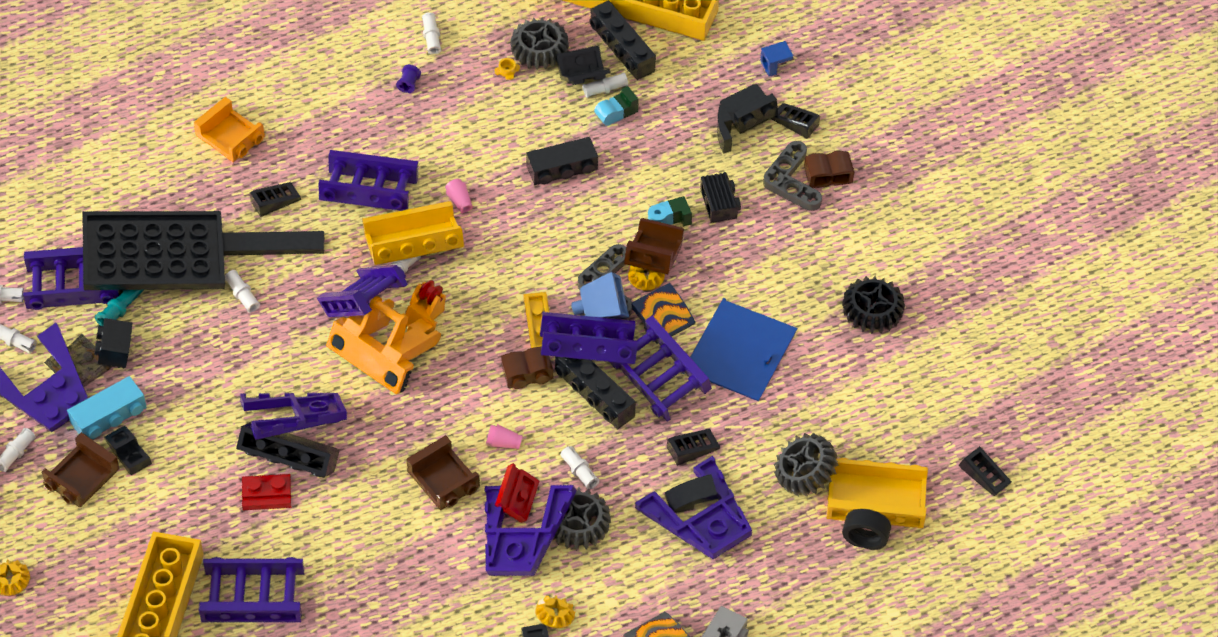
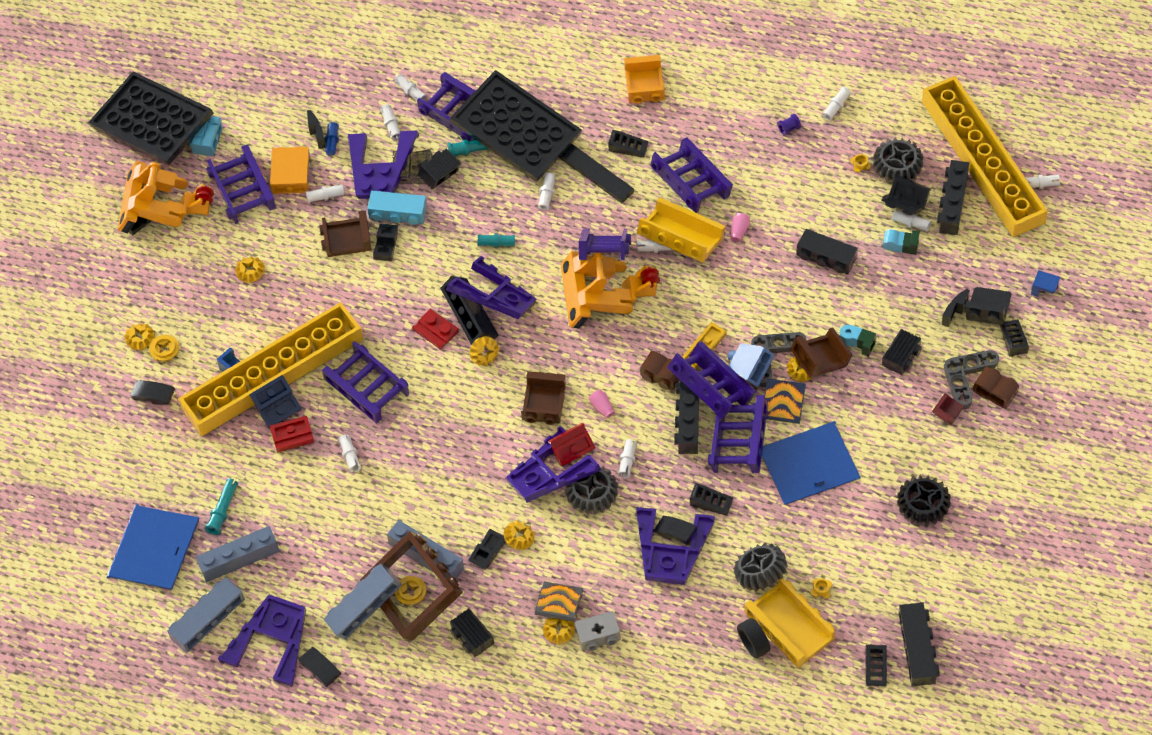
camera: 50 degrees right, 5 degrees up
(240, 369) = (496, 240): none -> teal pin
(335, 473) = (478, 347): none -> yellow gear
(811, 216) = (947, 409): none -> dark red panel
(869, 438) = (825, 584): none -> yellow plate
(1001, 425) = (917, 644): none -> black brick

